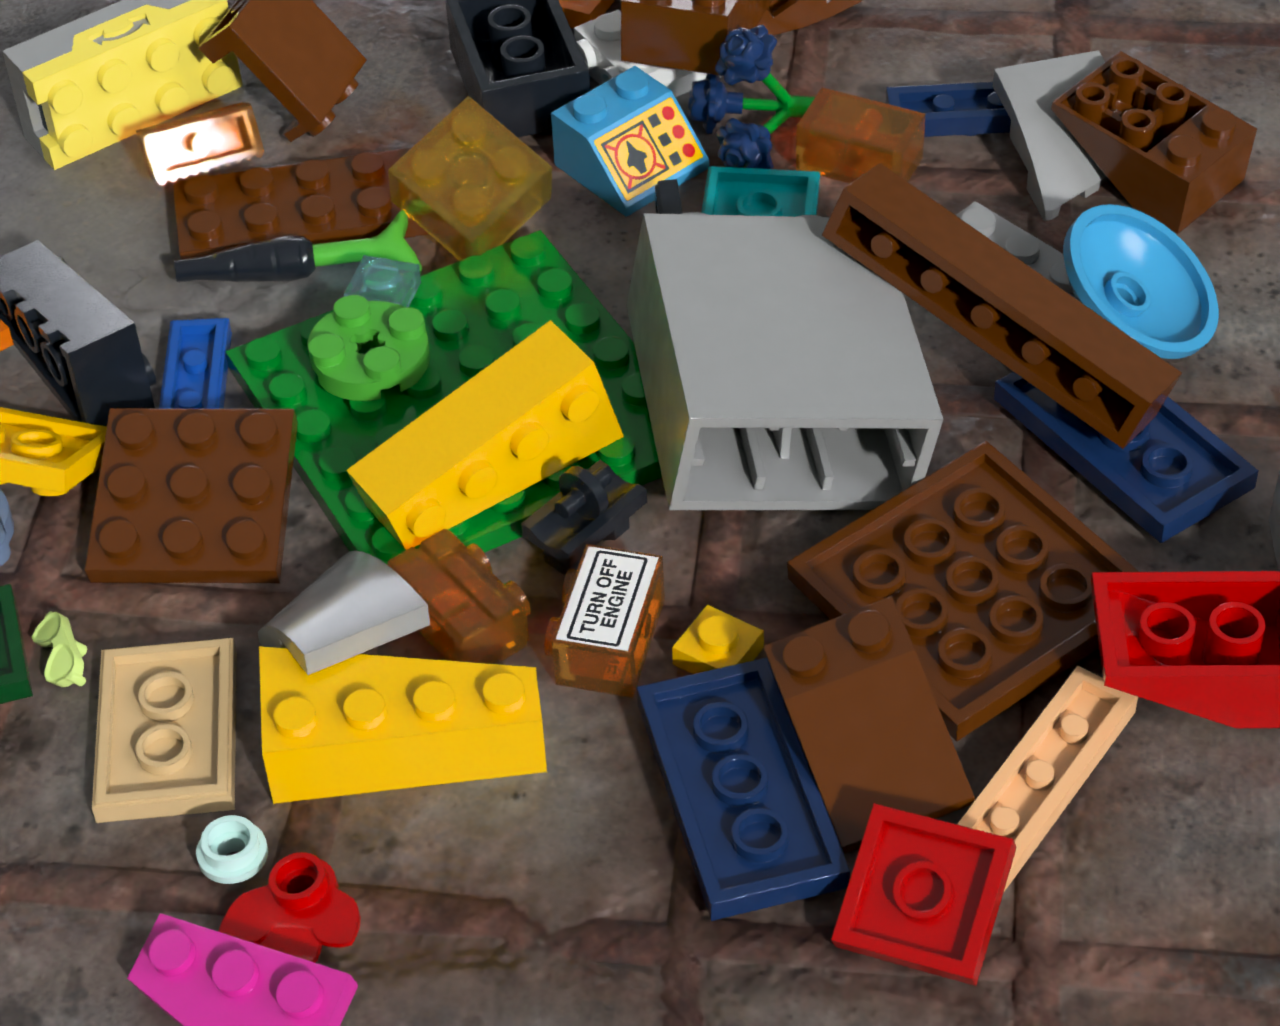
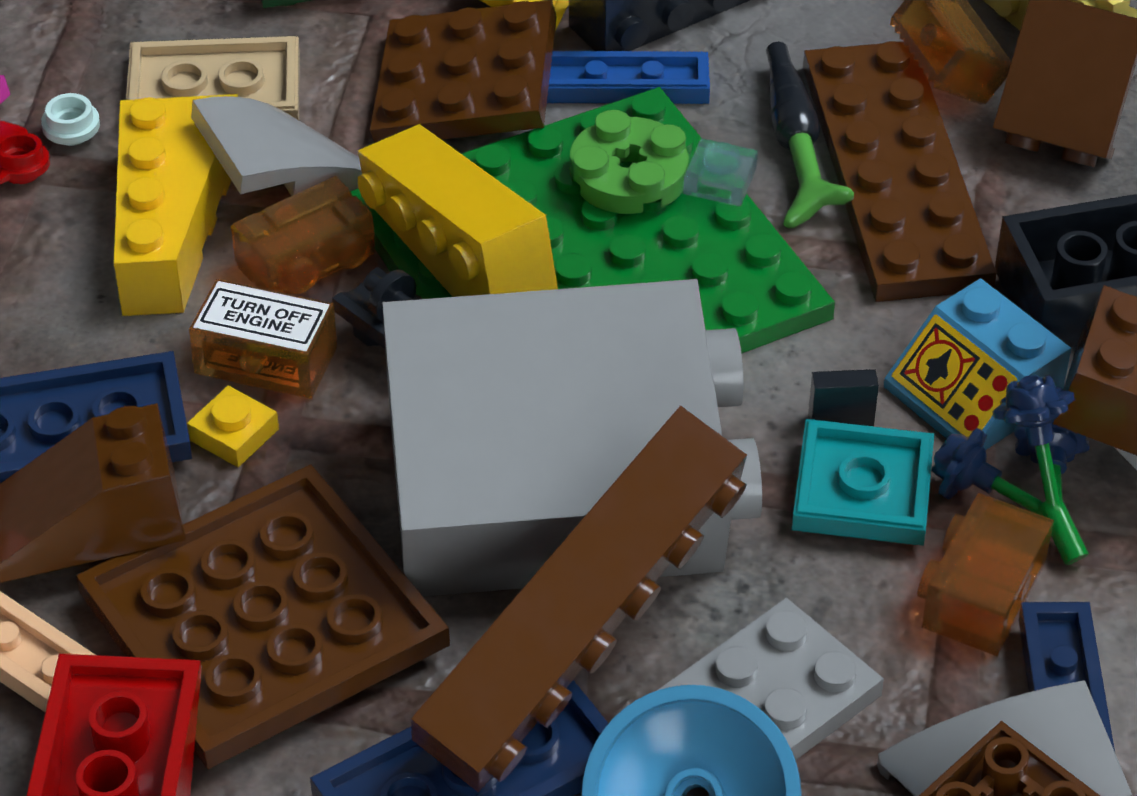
camera: 90 degrees right, 0 degrees up
(65, 661) = (310, 16): yellowish green piece -> none
(470, 182) = (863, 219): clear yellow brick -> none

